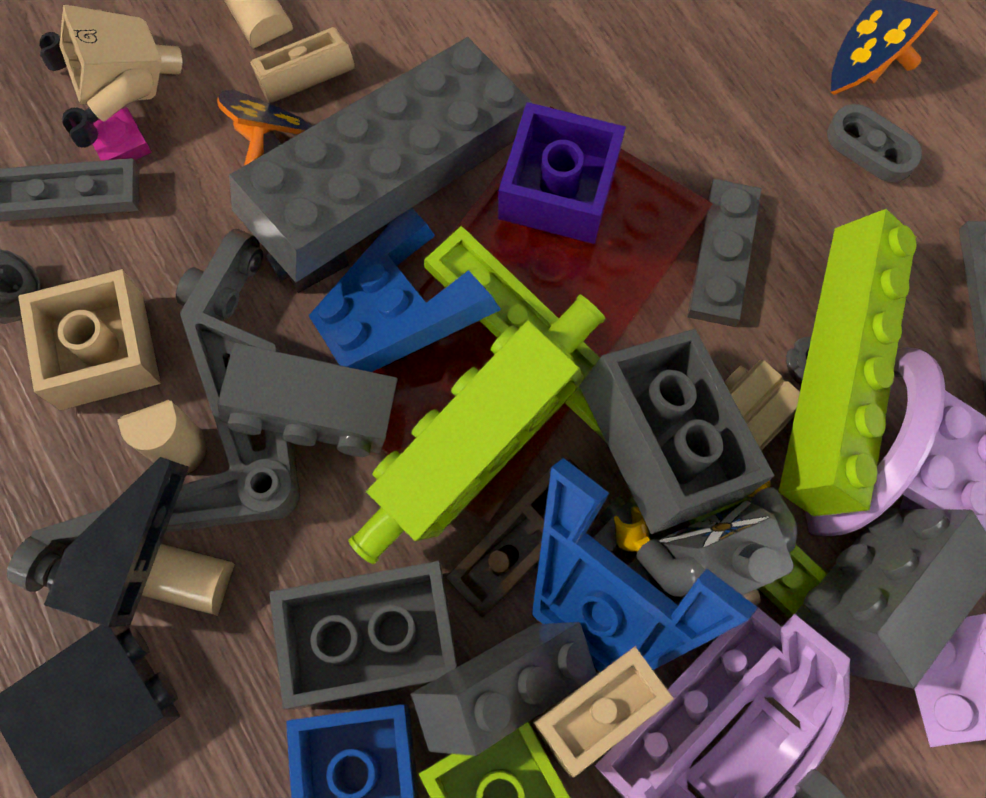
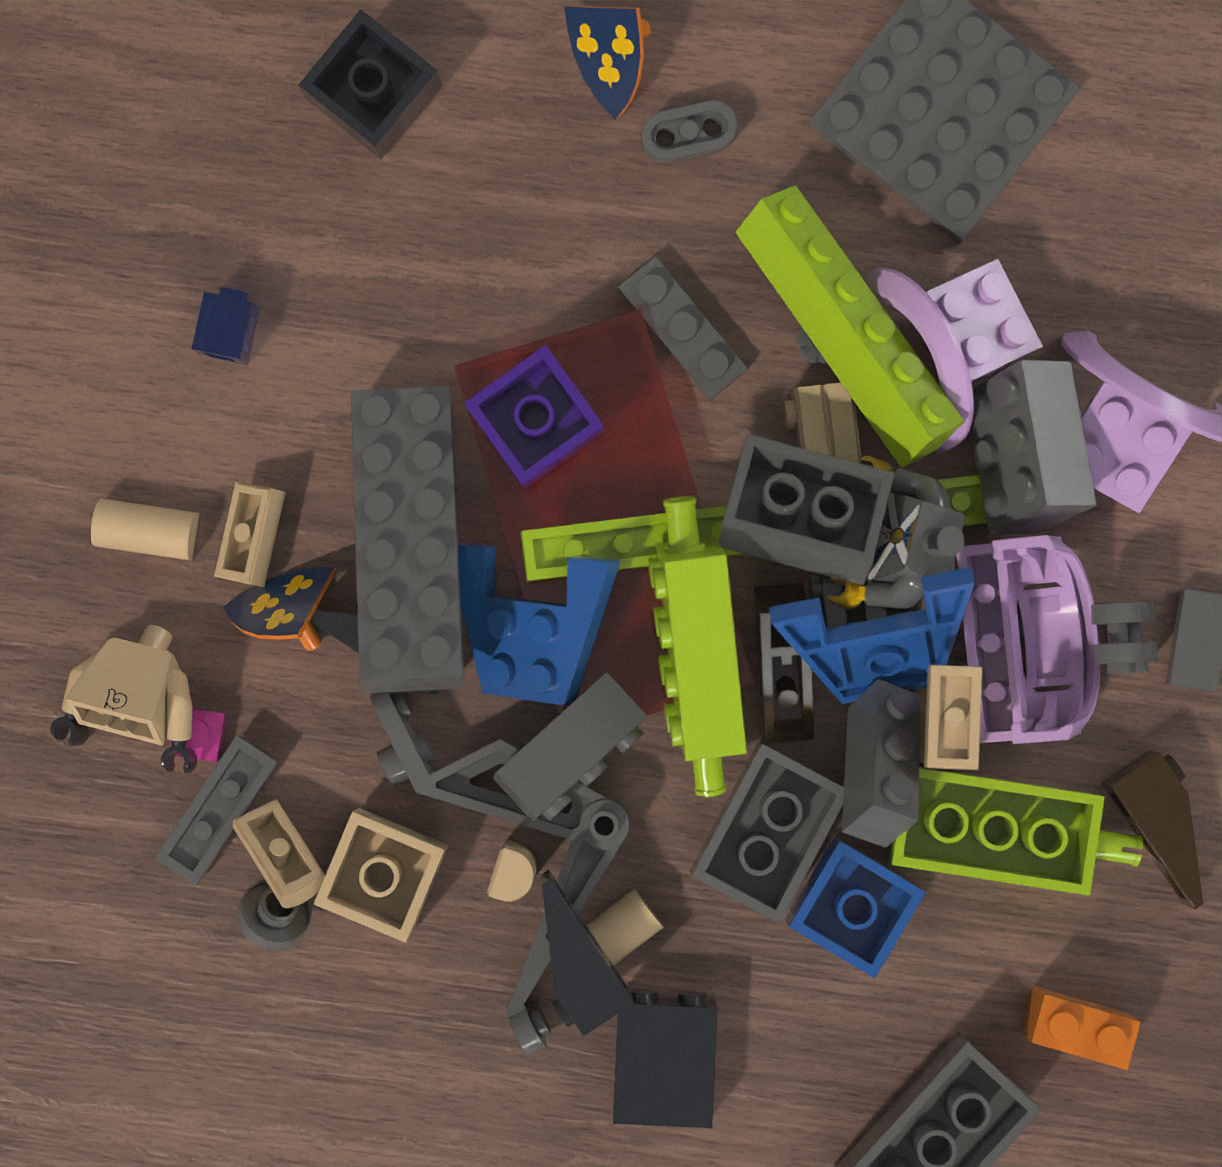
camera: 50 degrees left, 15 degrees up
(50, 249) = (280, 854): none -> tan brick

